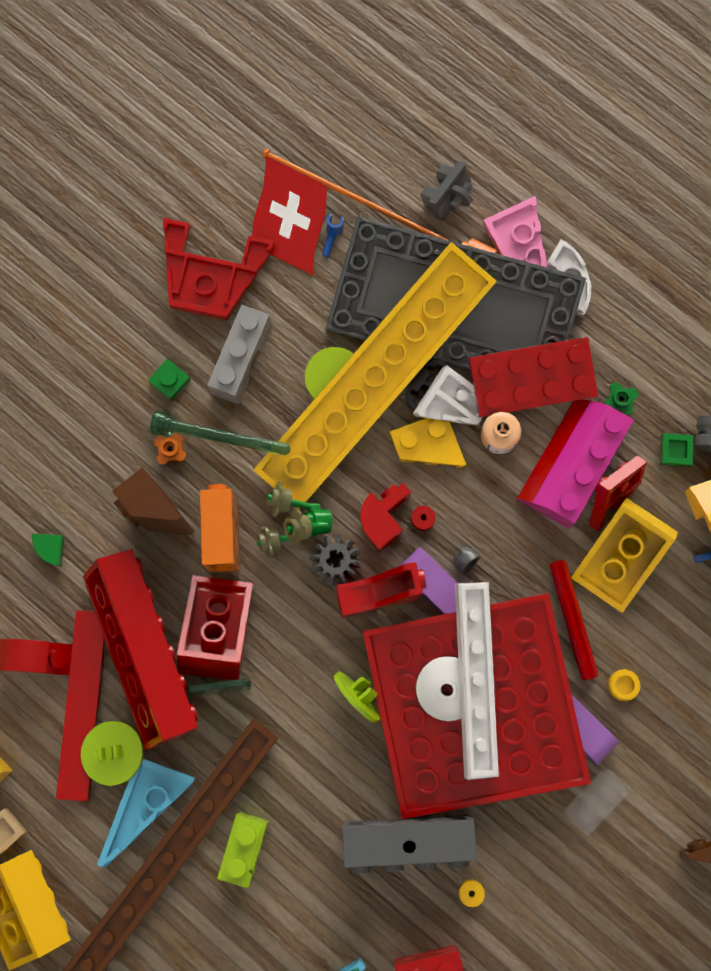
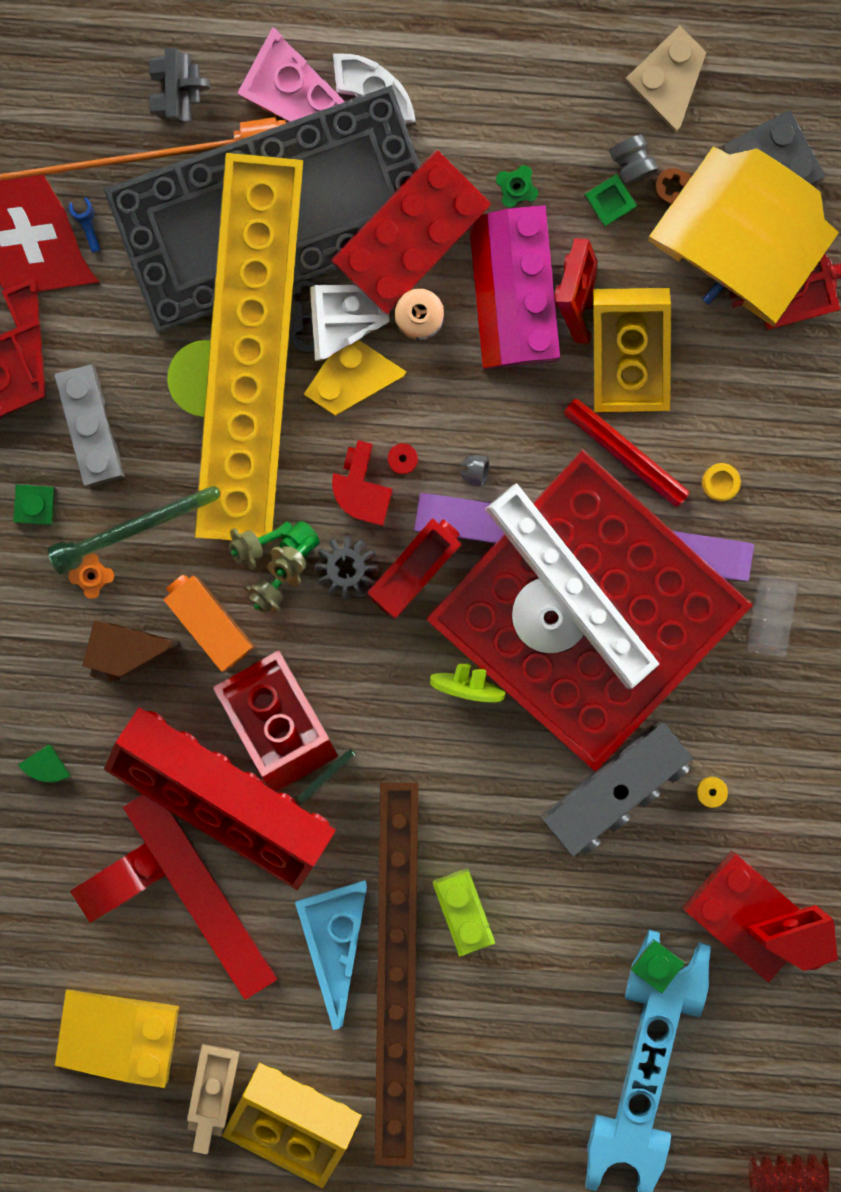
camera: 45 degrees left, 10 degrees up
(112, 753) = (267, 916): lime piece -> none

